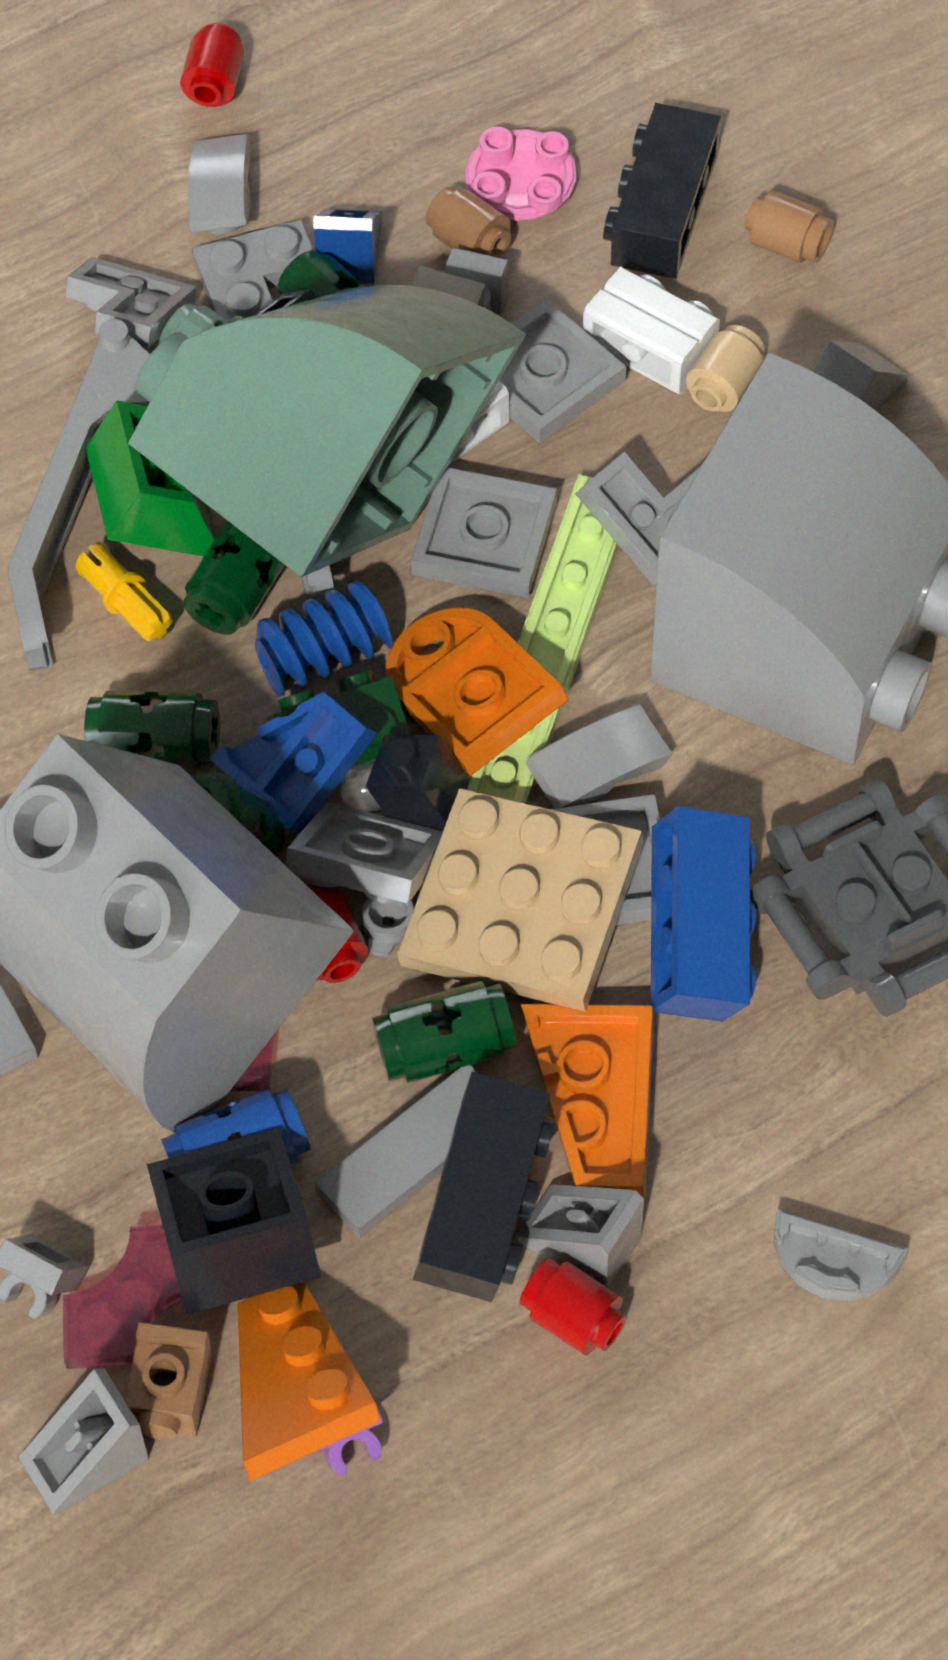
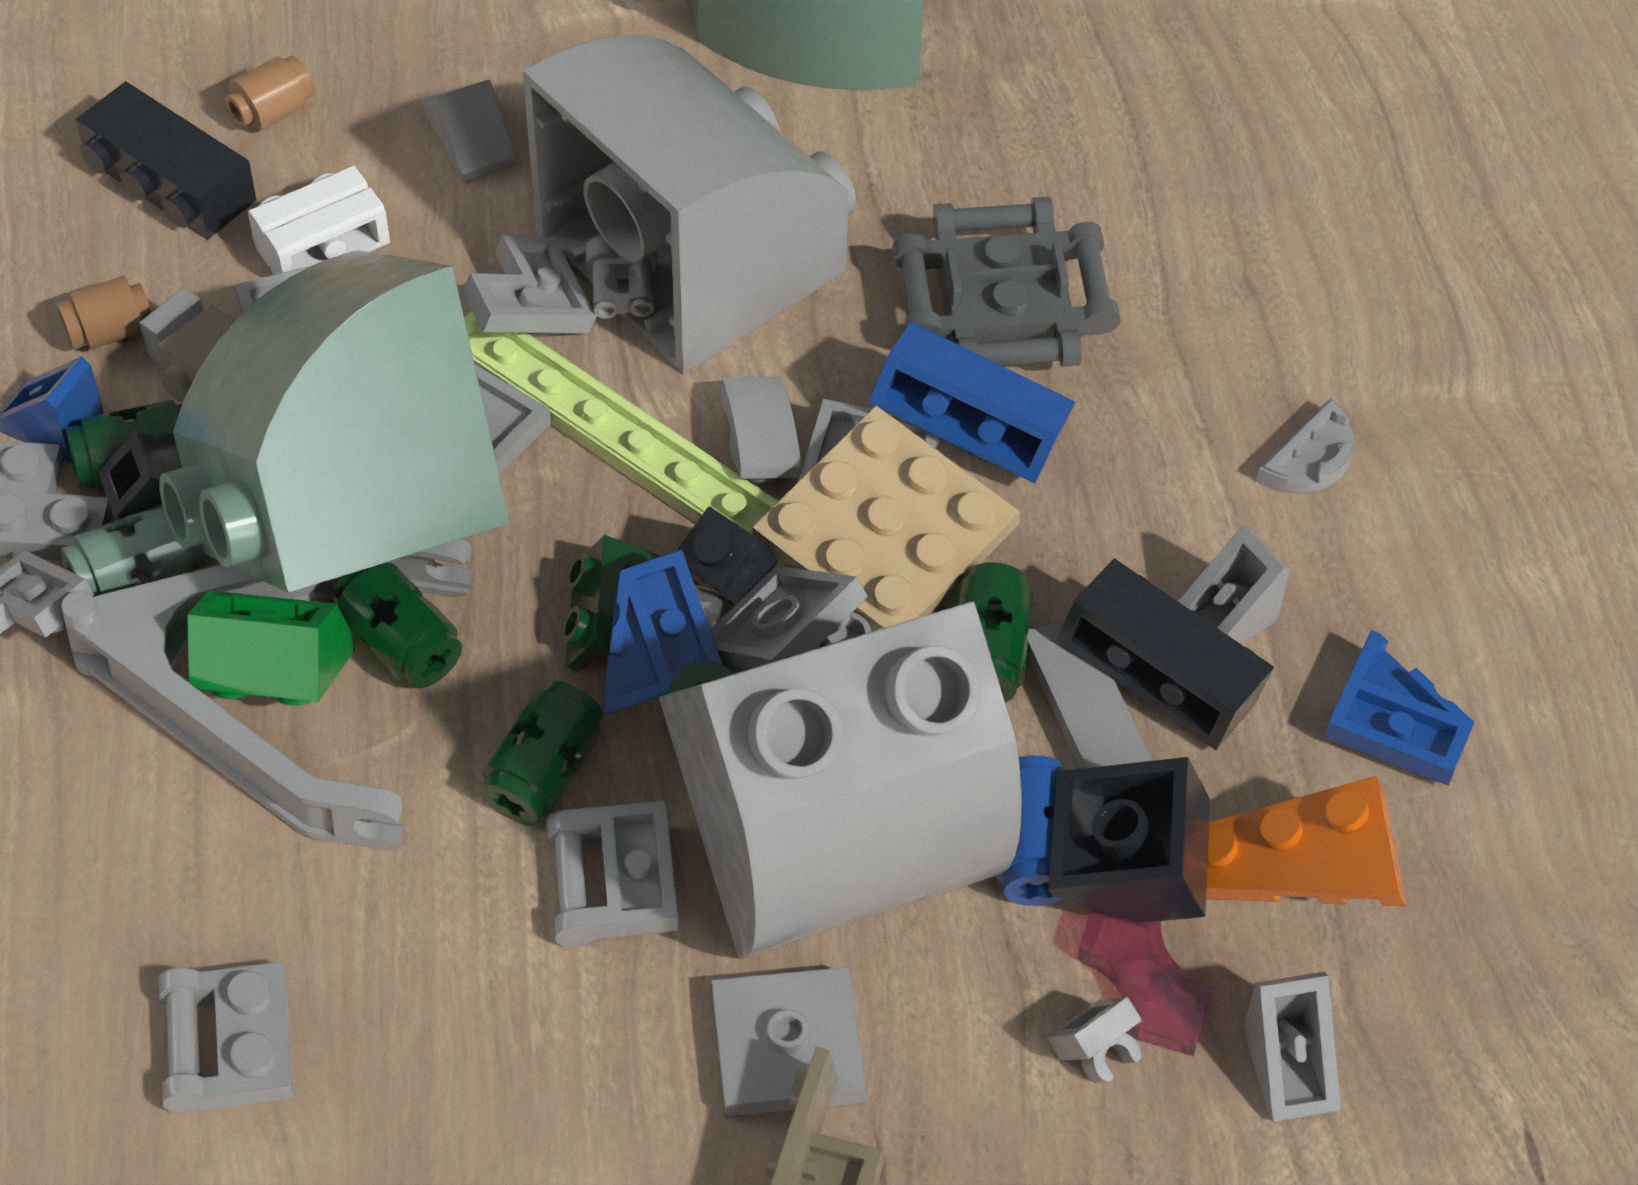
camera: 70 degrees left, 5 degrees down
(124, 593) = (363, 729): yellow axle -> none
(172, 1355) = (1248, 953): medium nougat brick -> none
(320, 634) = (517, 585): blue piece -> none
(475, 688) = (636, 484): orange plate -> none
(521, 172) = (62, 255): bright pink dish -> none
(524, 1430) = (1399, 716): none -> blue wing
(573, 1306) = (1300, 634): red brick -> none
(598, 1087) = (1073, 536): orange wing -> none
(725, 368) = (401, 189): tan brick -> none

